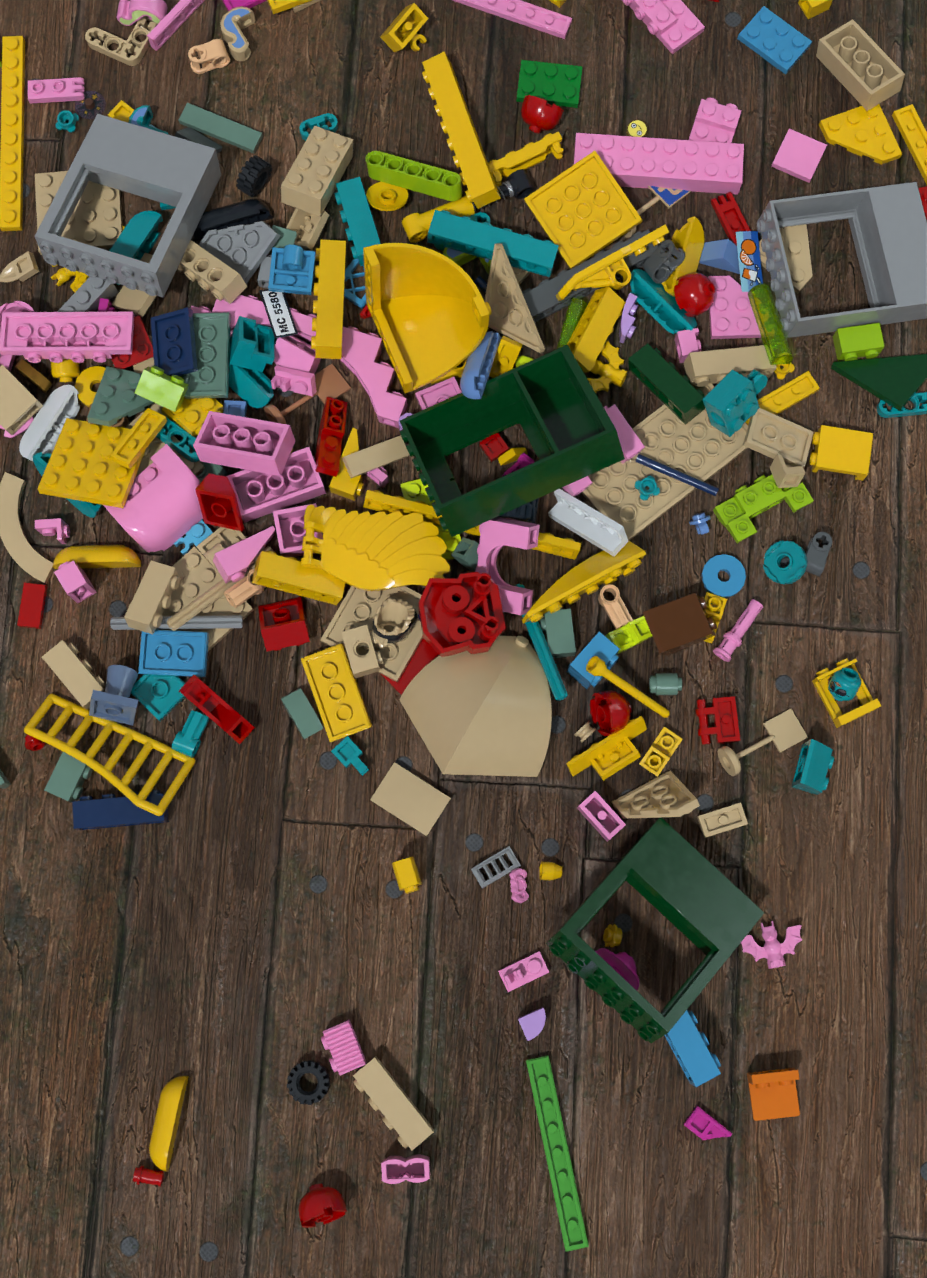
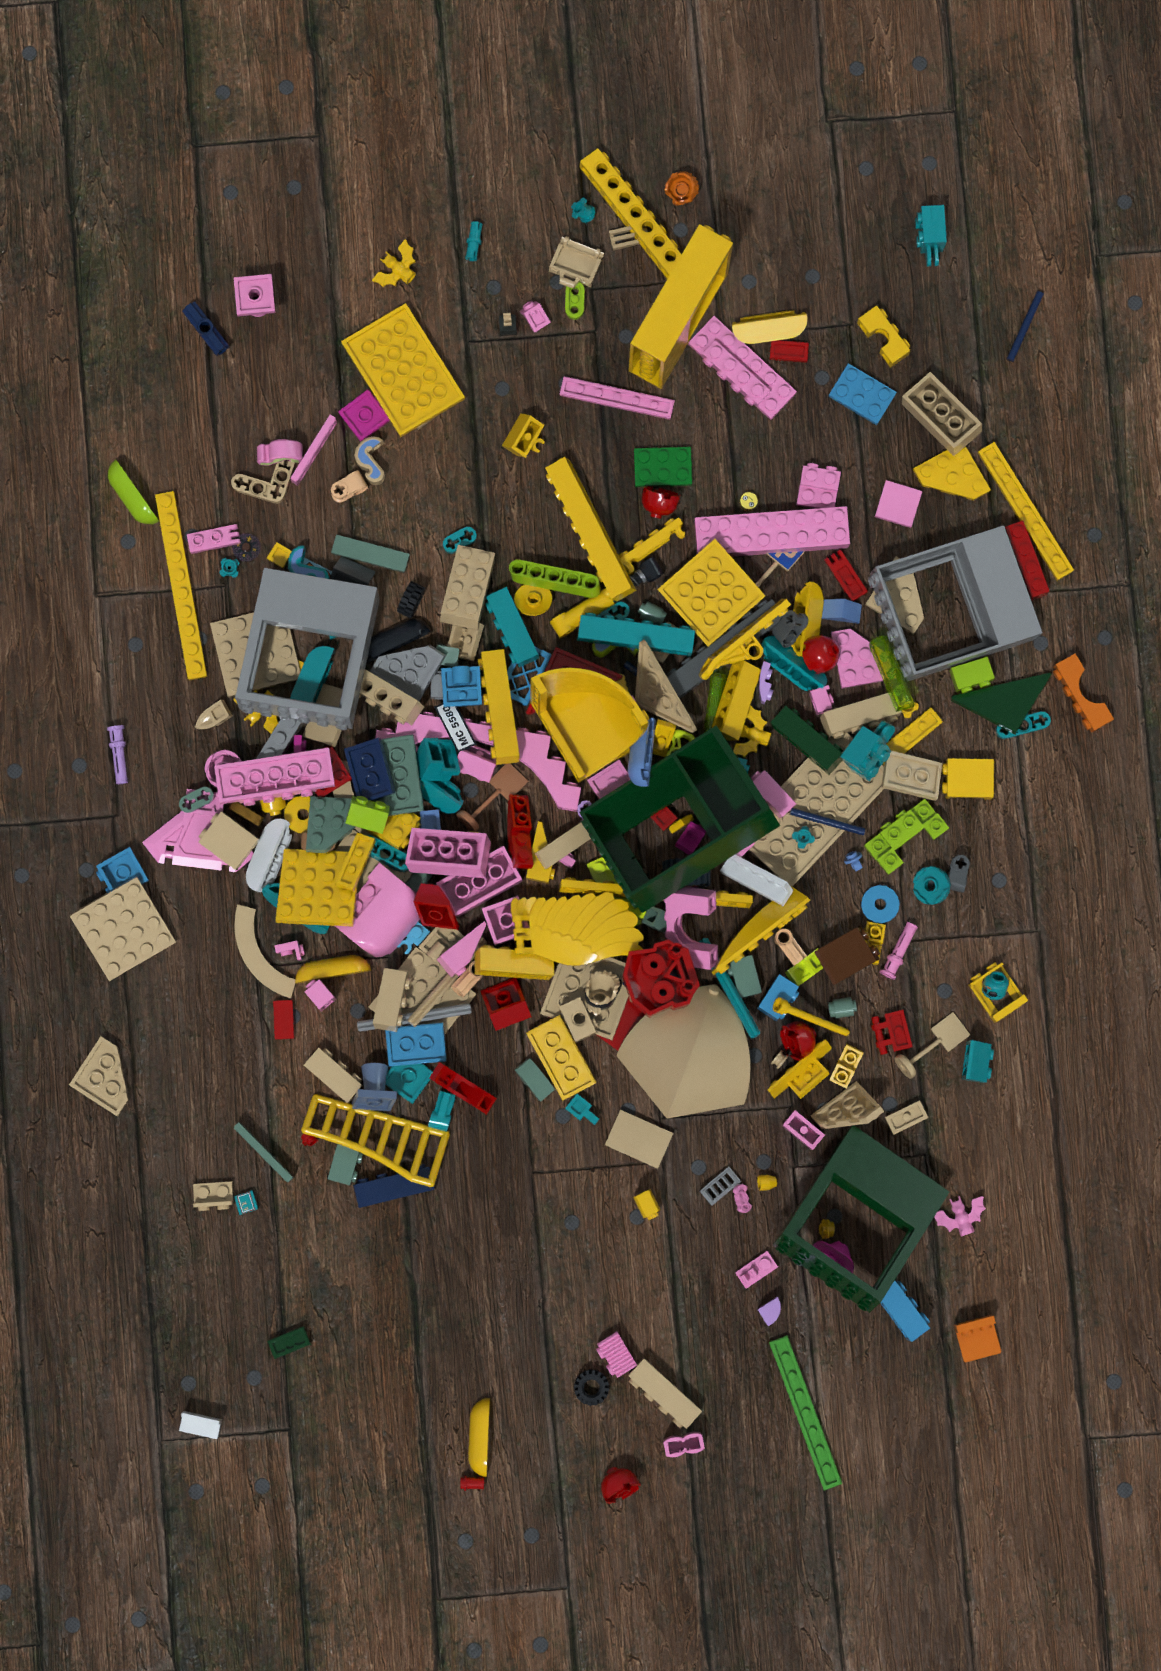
camera: 10 degrees left, 5 degrees up
(294, 380) = (478, 784): bright pink plate -> none
(515, 225) = (652, 613): none -> sand green brick
(704, 1125) = (924, 1373): dark pink tile -> none
(749, 259) = (866, 613): sticker -> none
(785, 474) = (921, 808): tan panel -> none

